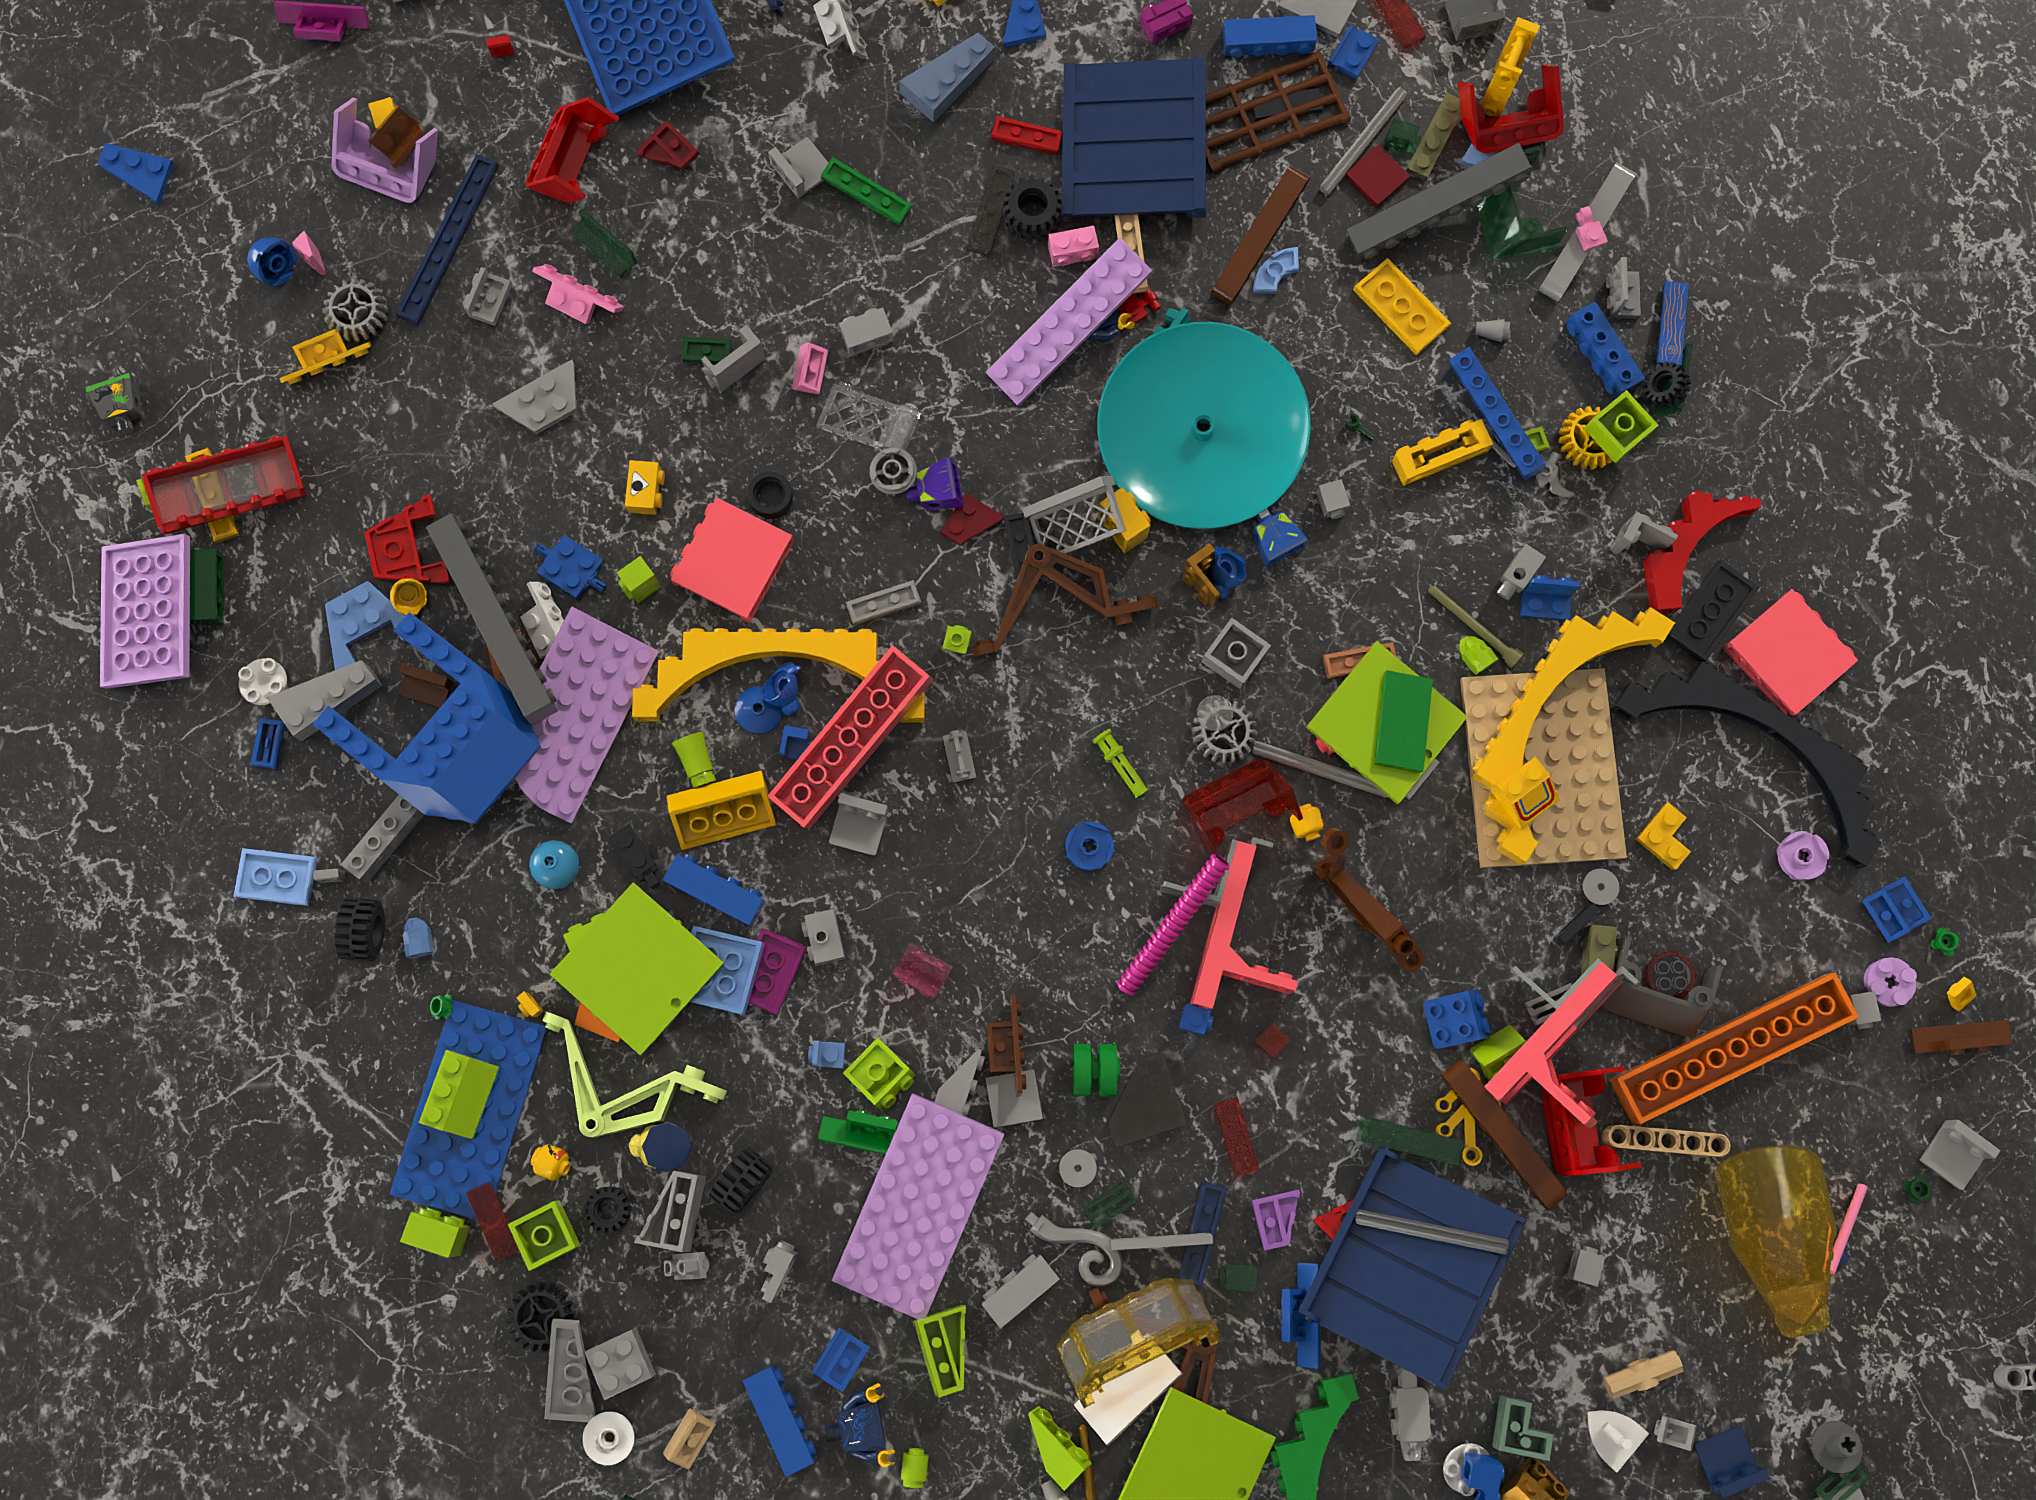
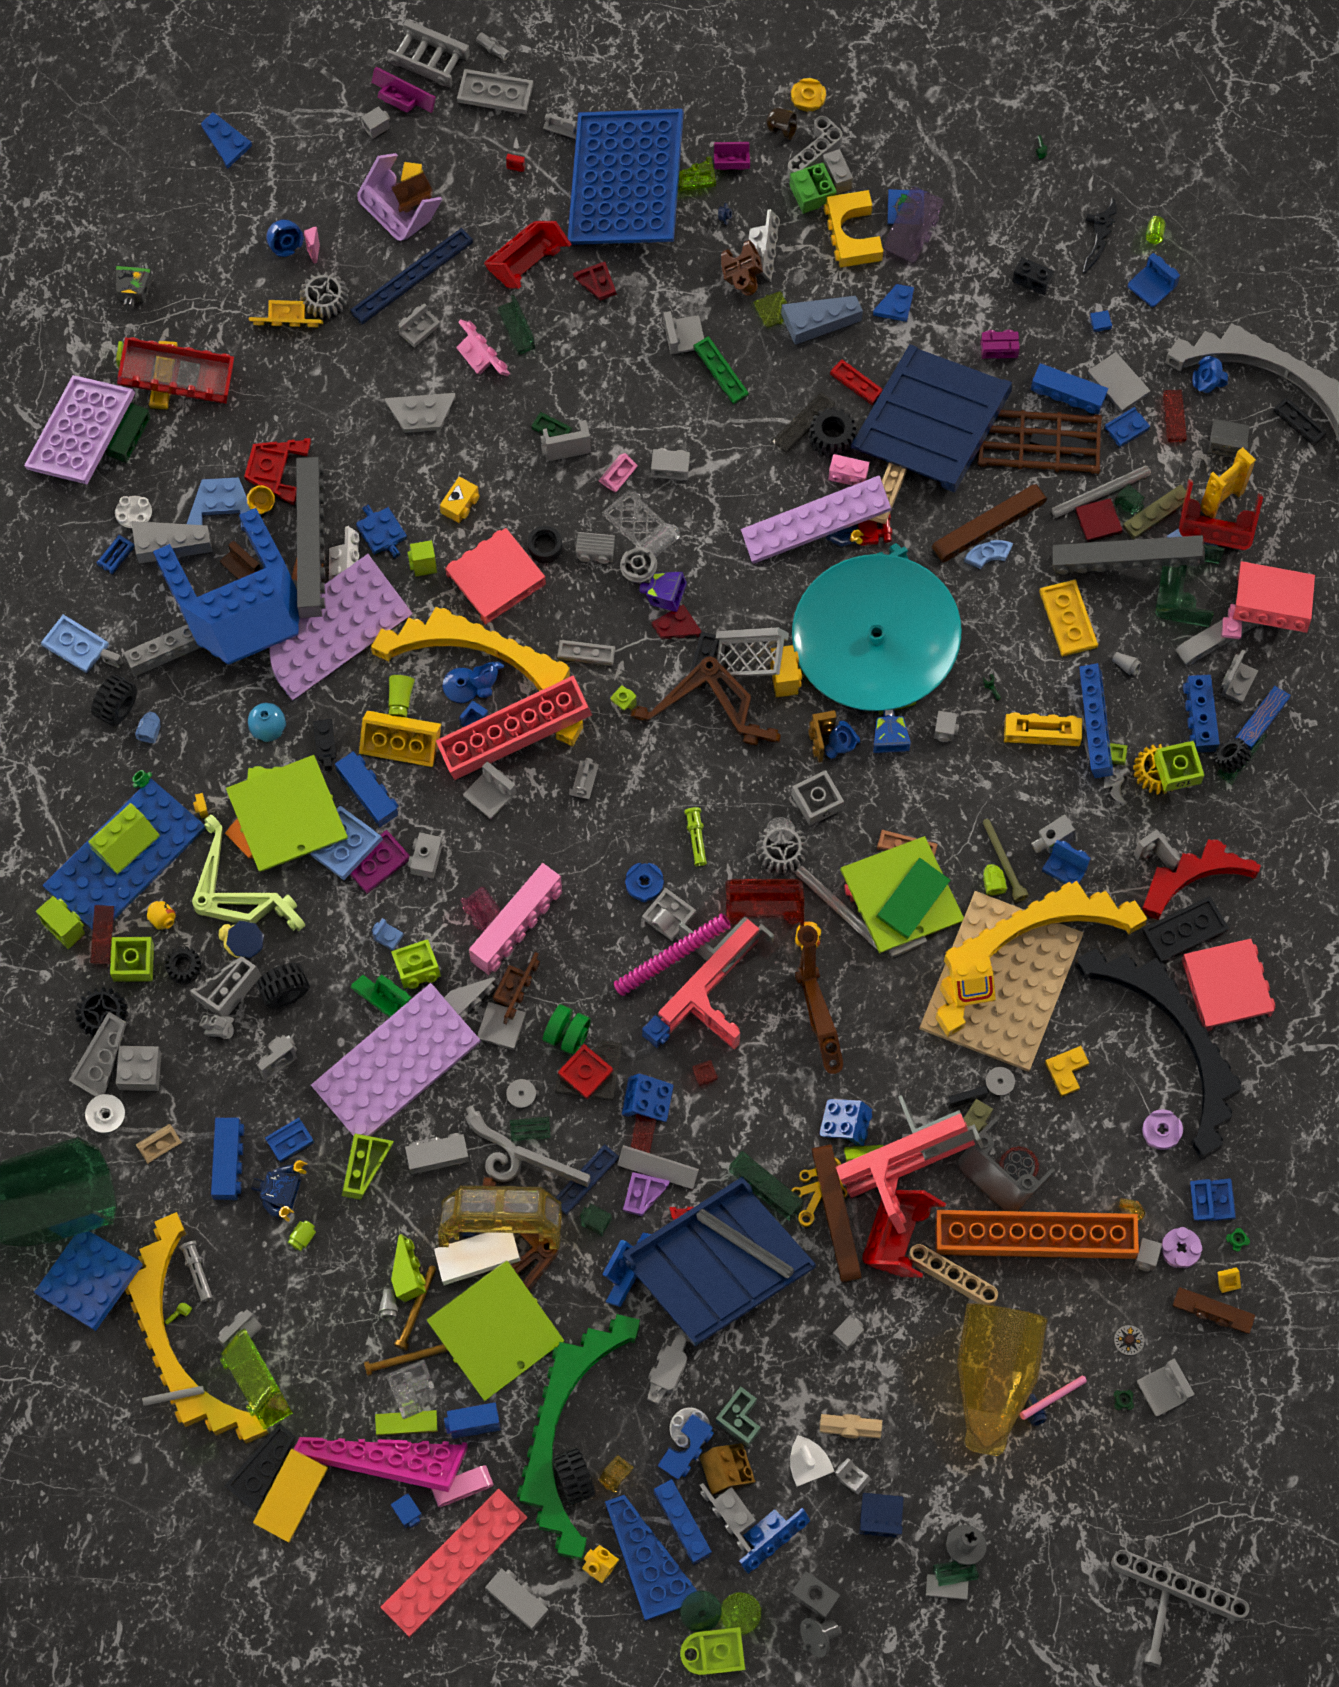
camera: 30 degrees right, 10 degrees down
(309, 69) = (375, 122): none -> light grey brick
(830, 472) = (595, 547): none -> light grey brick
(831, 58) = (742, 269): none -> reddish brown piece
(885, 91) = (770, 308): none -> clear neon green piece
(969, 964) = (516, 919): none -> bright pink brick
(1137, 871) = (667, 914): none -> light grey plate
(1141, 1109) = (585, 1071): none -> red plate
(1223, 1103) = (647, 1097): none -> blue bracket
(1277, 1178) = (658, 1167): none -> light grey tile
(1621, 177) = (1274, 597): none -> coral panel
(1816, 960) = (1133, 1206): none -> clear yellow arm
(1886, 1115) = (1129, 1340): none -> piece

